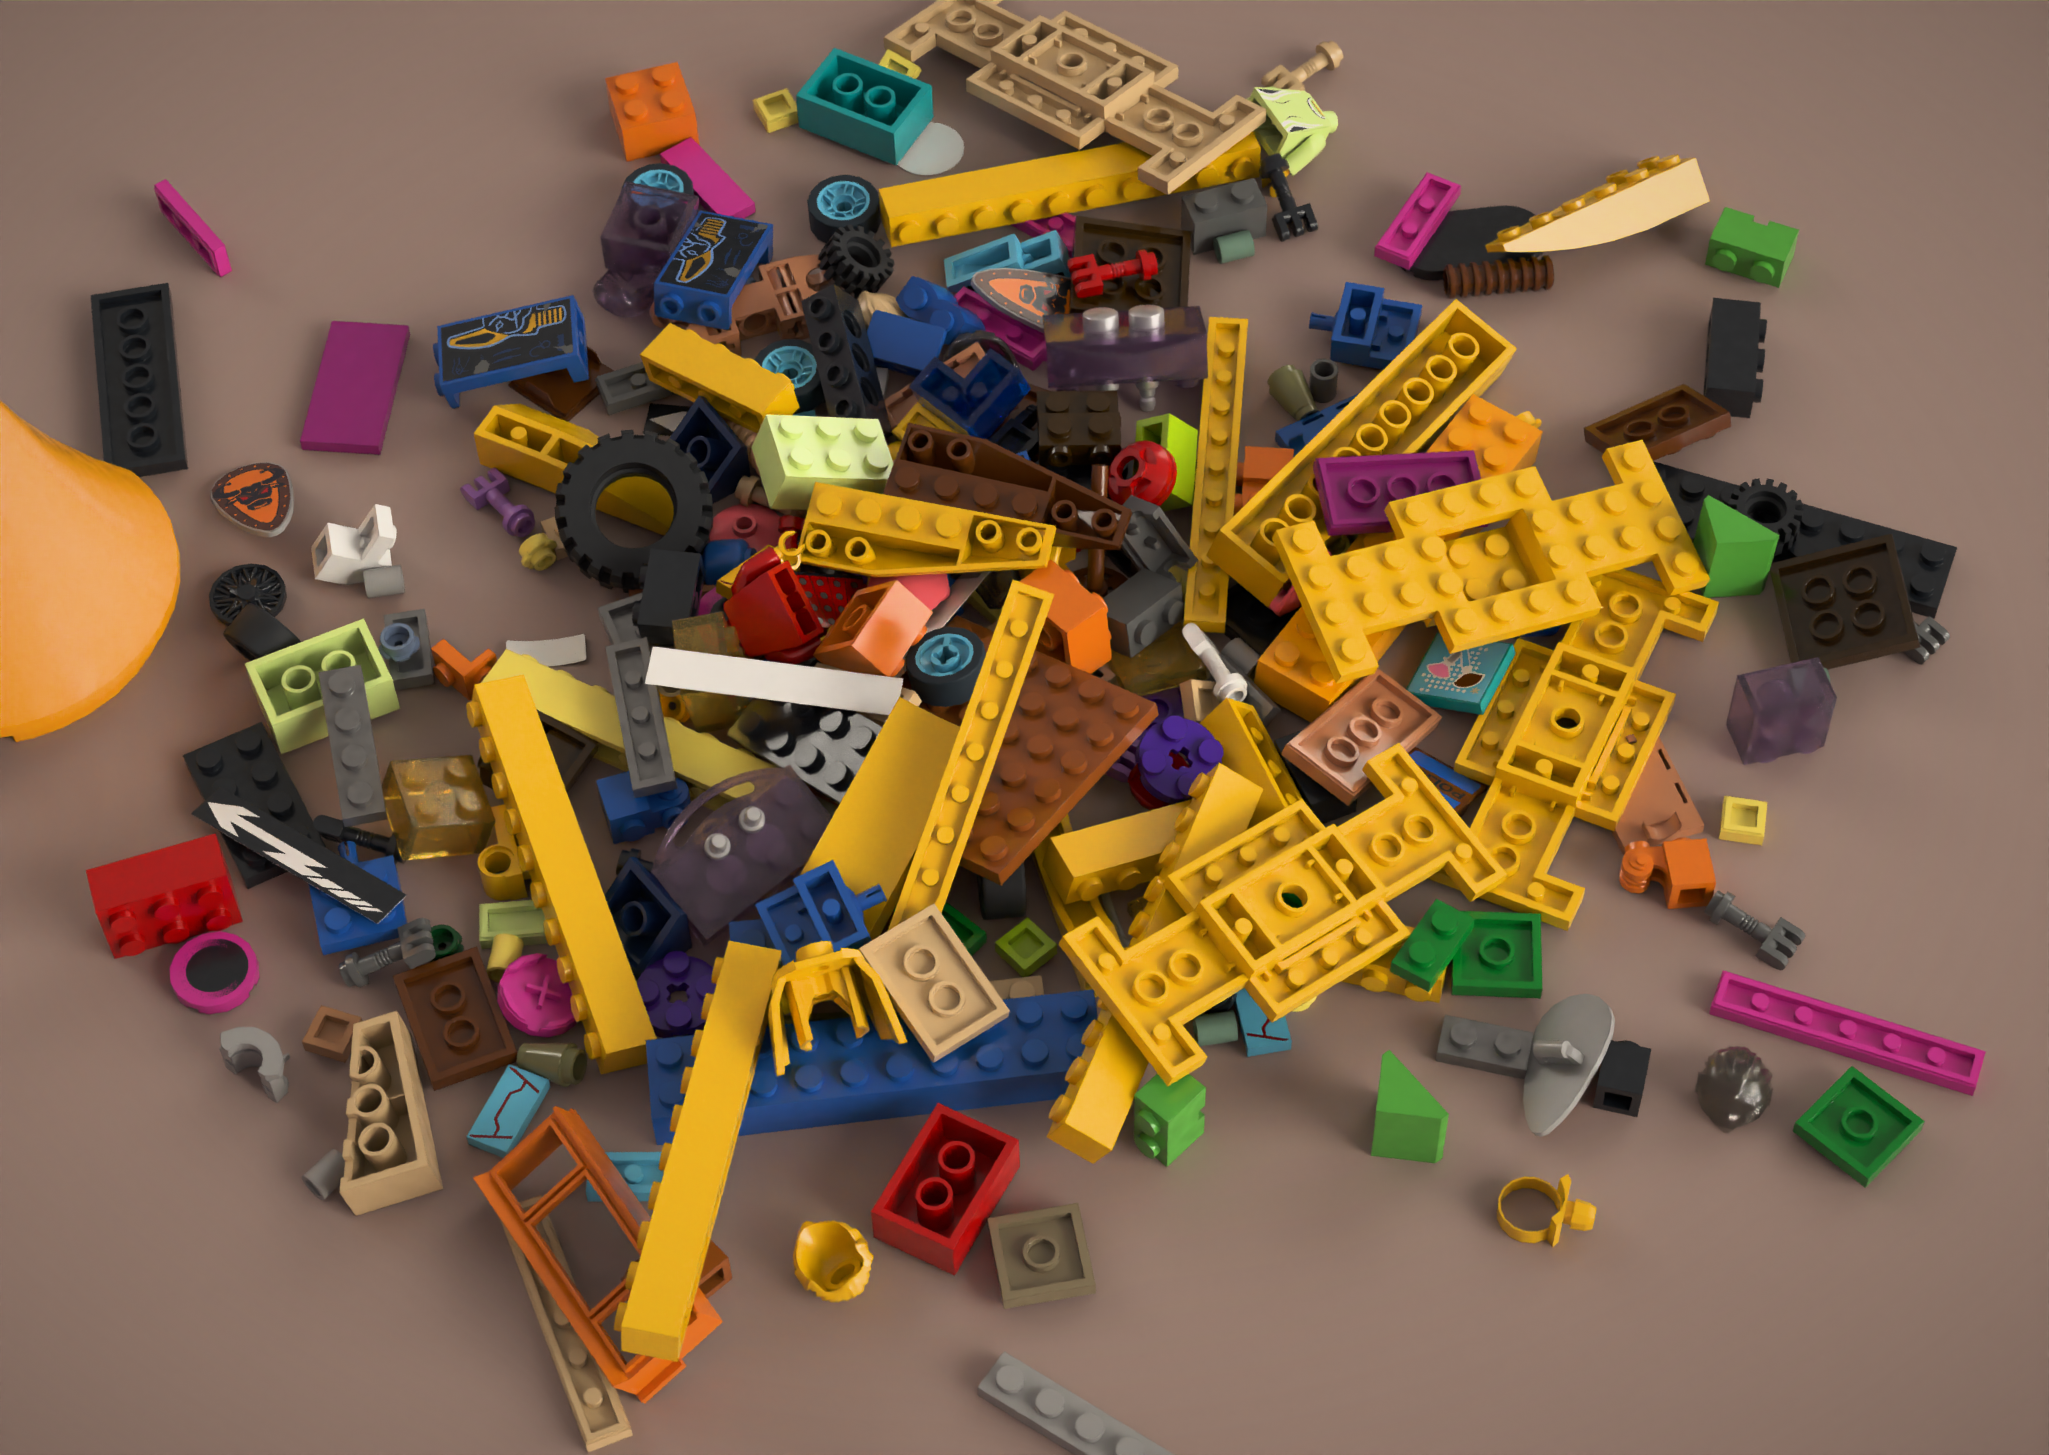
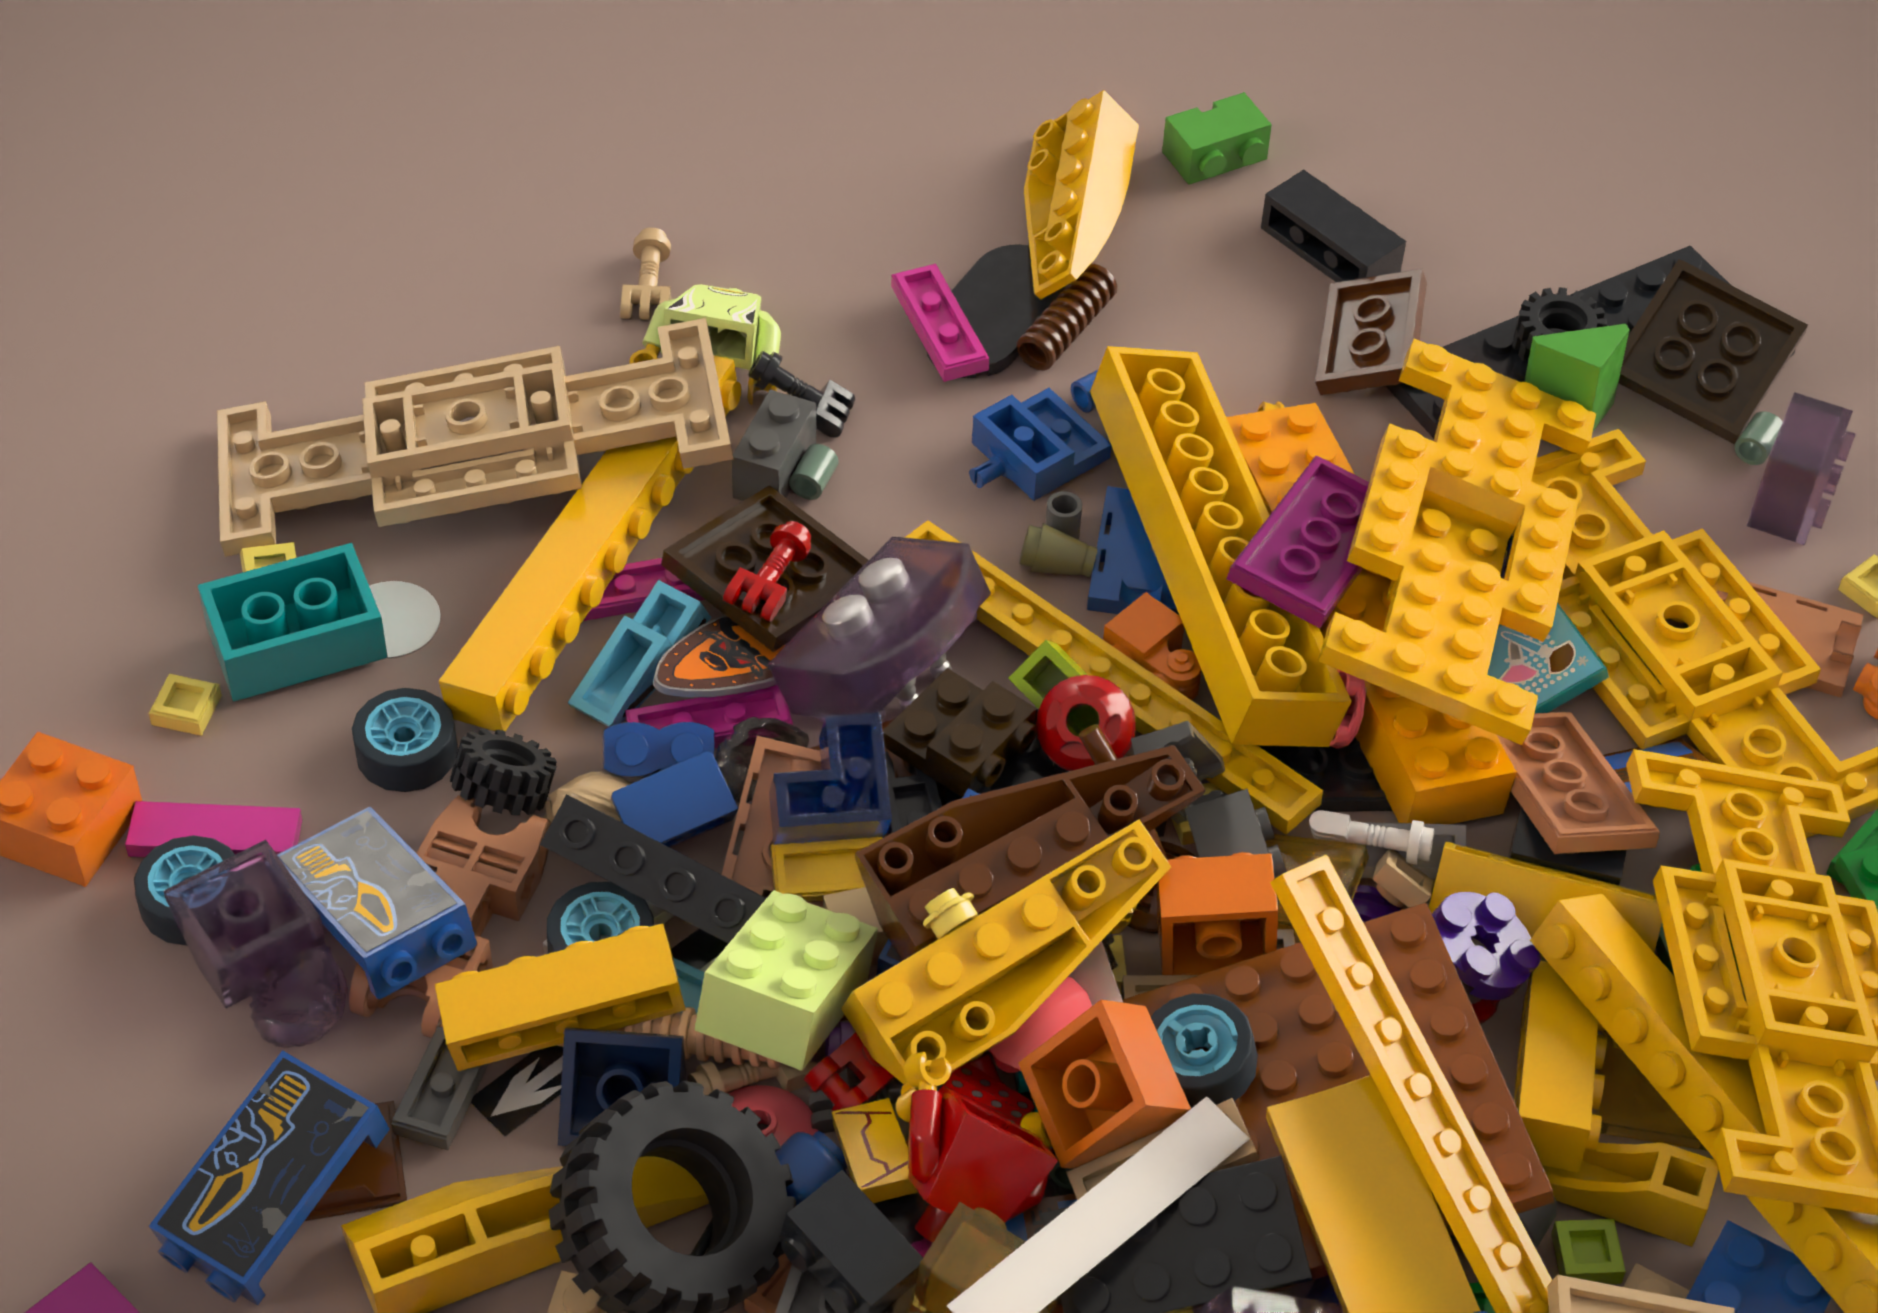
camera: 55 degrees left, 5 degrees down
(904, 485) = (949, 912): none -> light yellow plate
(1242, 656) = (1362, 809): light grey hinge -> none

